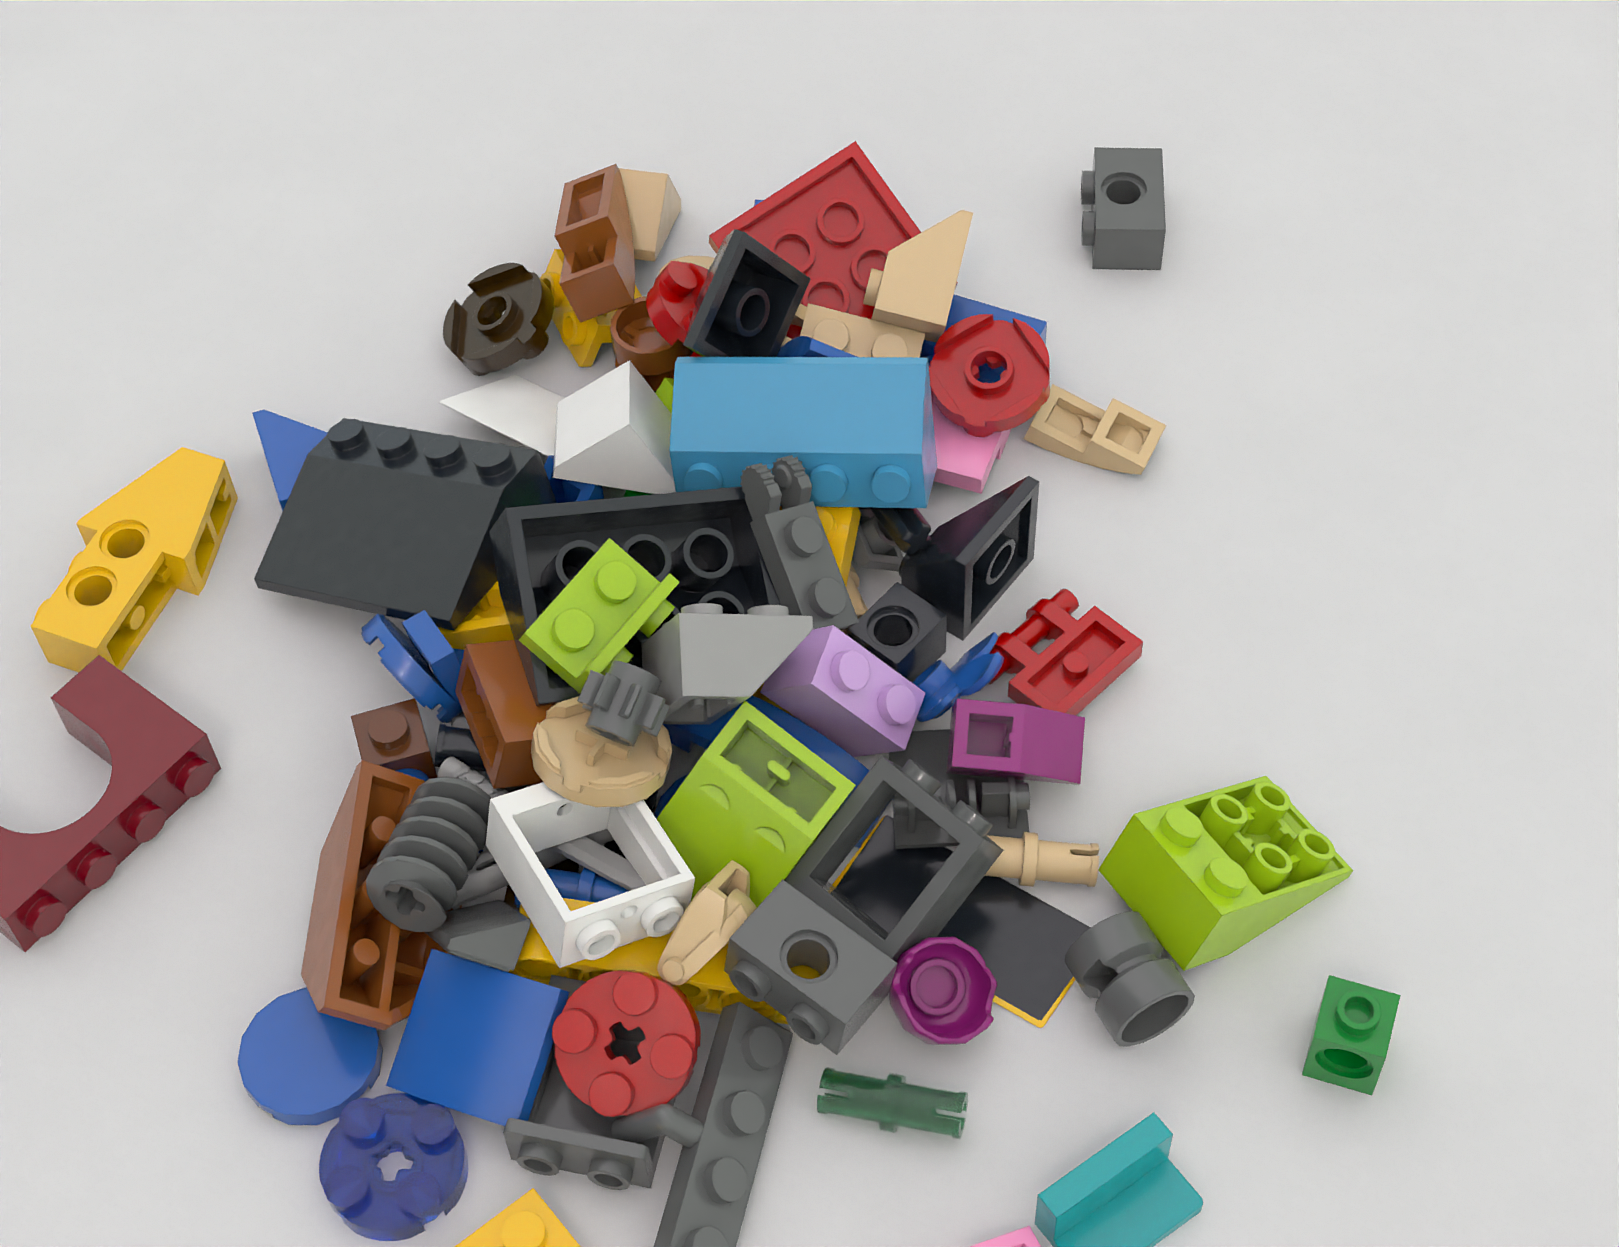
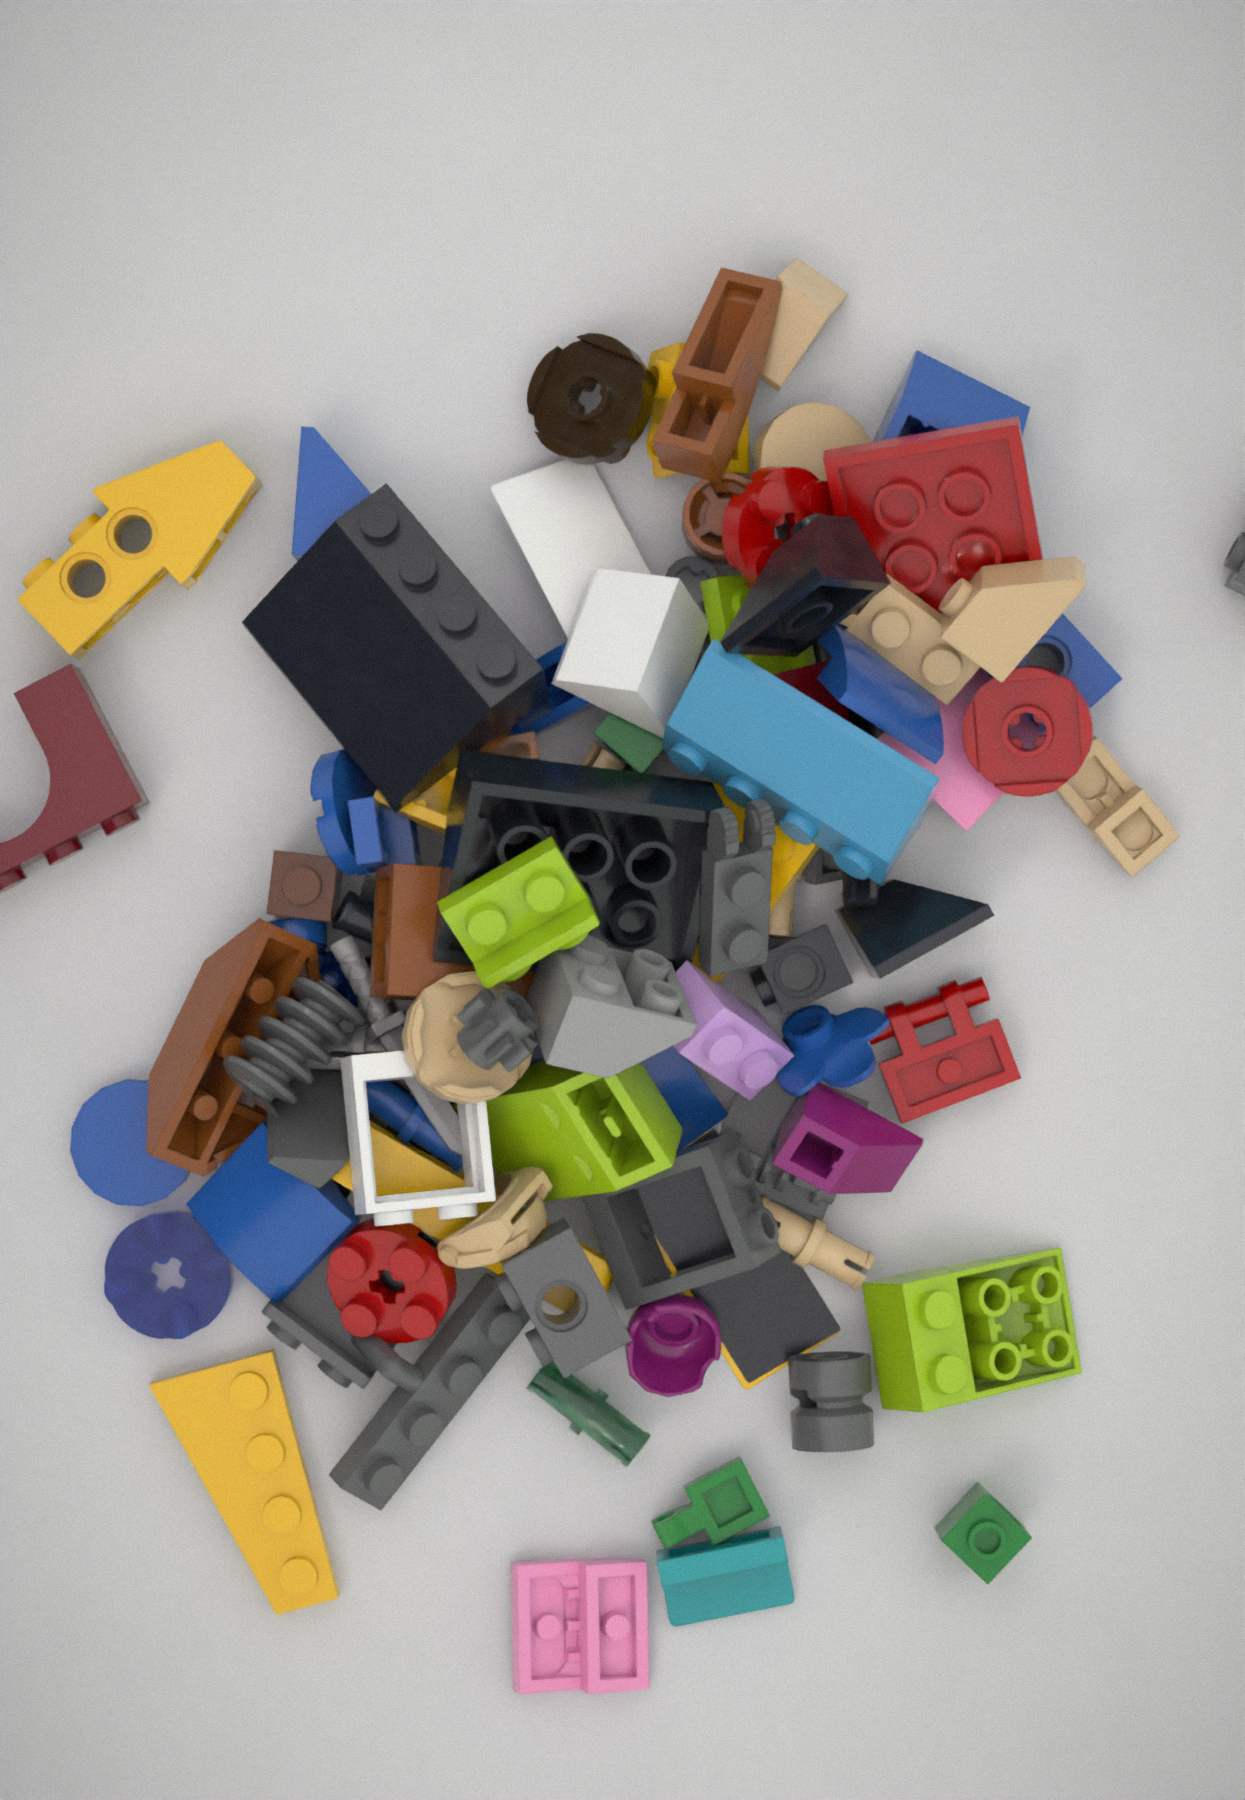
camera: 25 degrees right, 35 degrees up
(1067, 1133) = (720, 1503): none -> green plate

